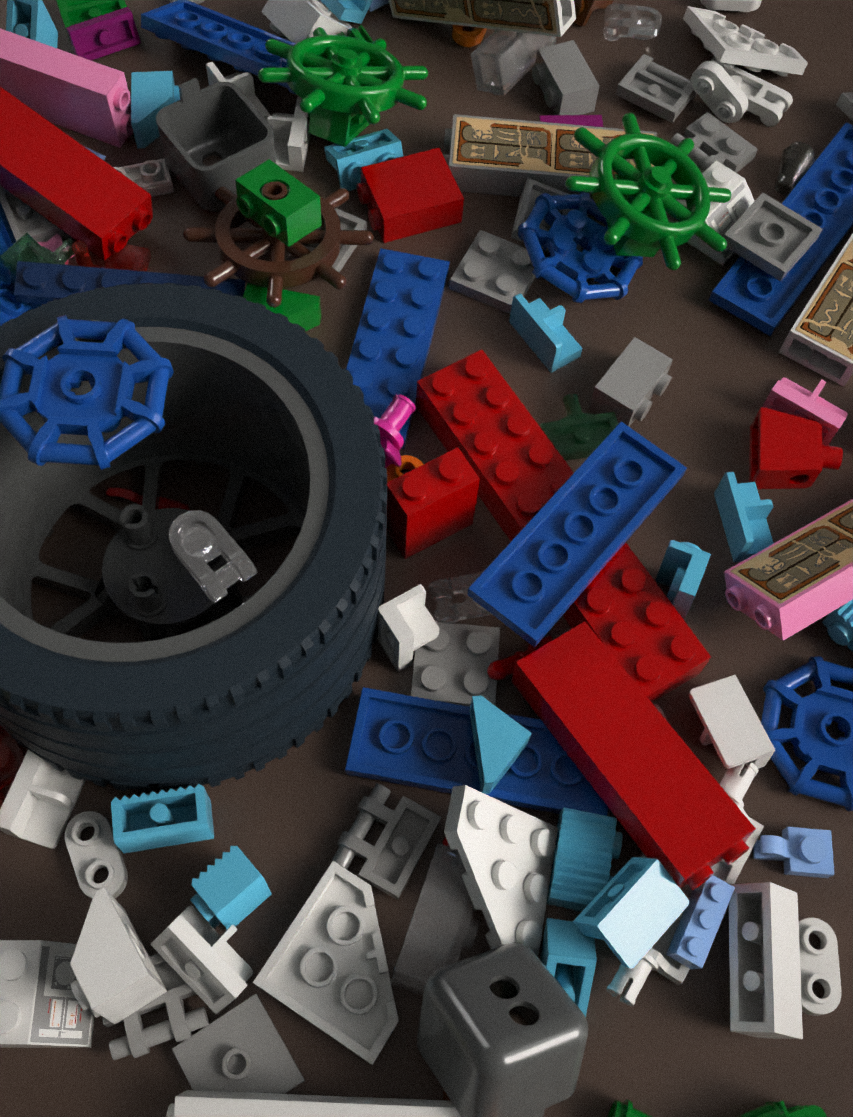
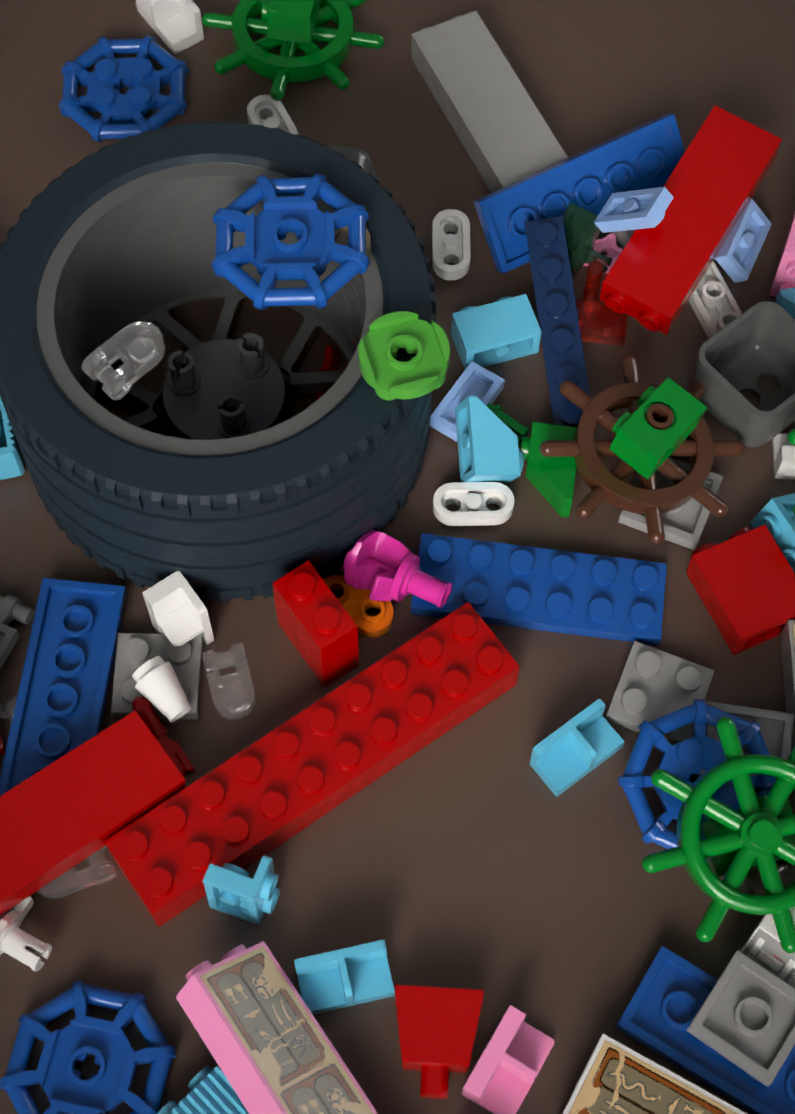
camera: 90 degrees right, 0 degrees up
(34, 194) = (634, 210): none -> light blue plate
(248, 324) = (404, 379): none -> bright green plate
(483, 646) = (162, 688): none -> white cone
(496, 741) = (58, 700): medium azure slope -> none
(576, 533) = (283, 765): blue plate -> none
(578, 432) = (439, 791): clear green plate -> none
(632, 383) = (511, 846): light grey brick -> none
(731, 723) = (85, 942): white panel -> none

